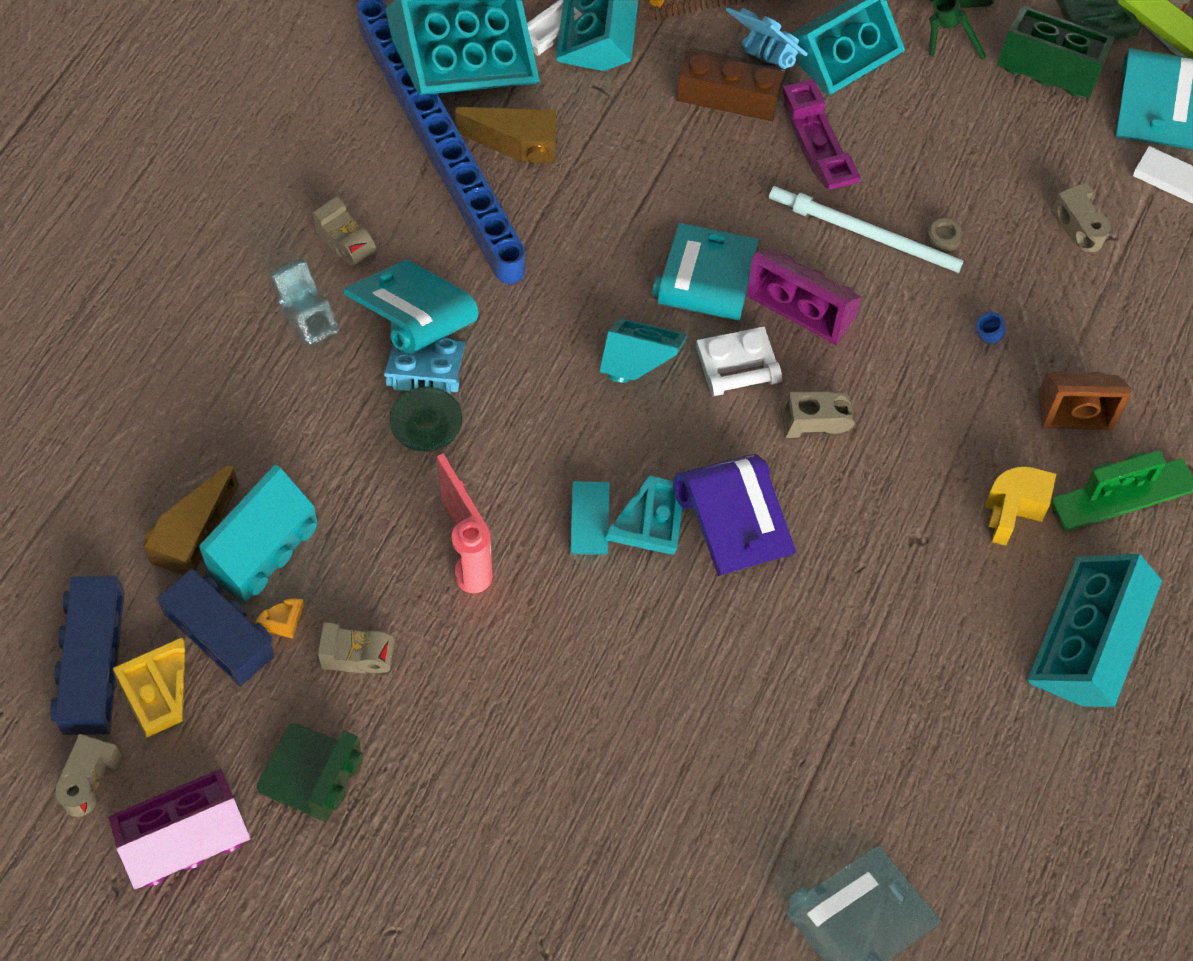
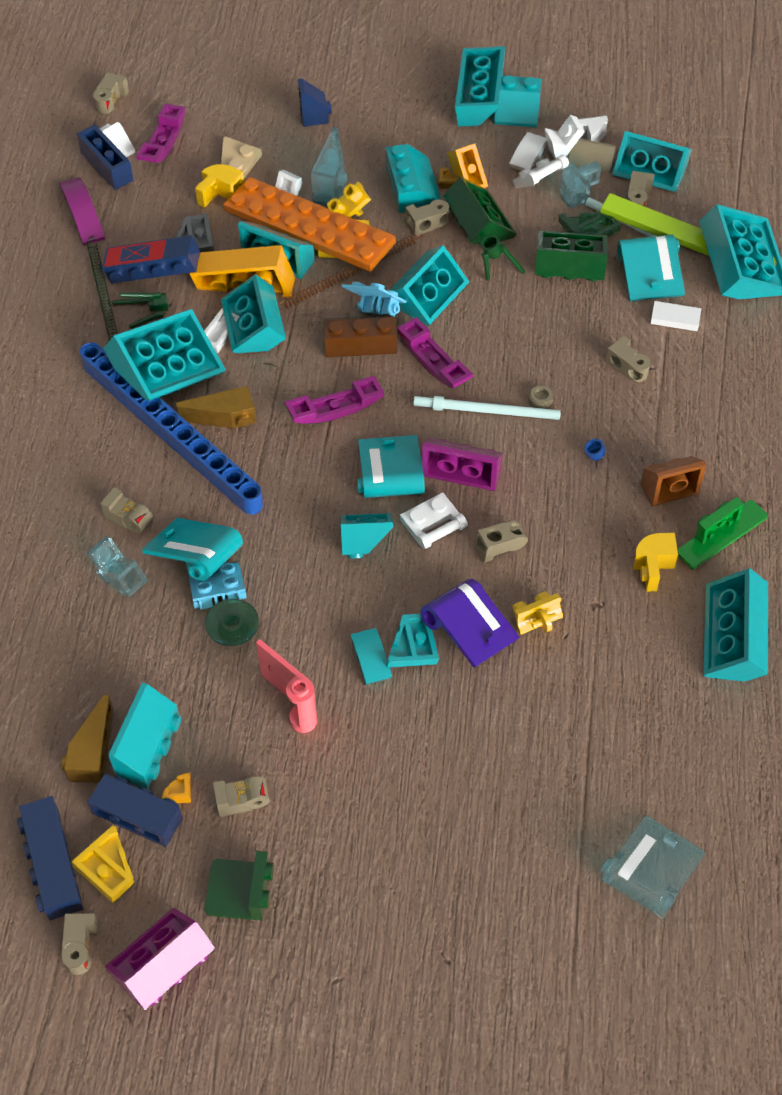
camera: 15 degrees left, 5 degrees down
(665, 169) = (336, 405): none -> magenta slope
(833, 528) = (538, 614): none -> yellow hips

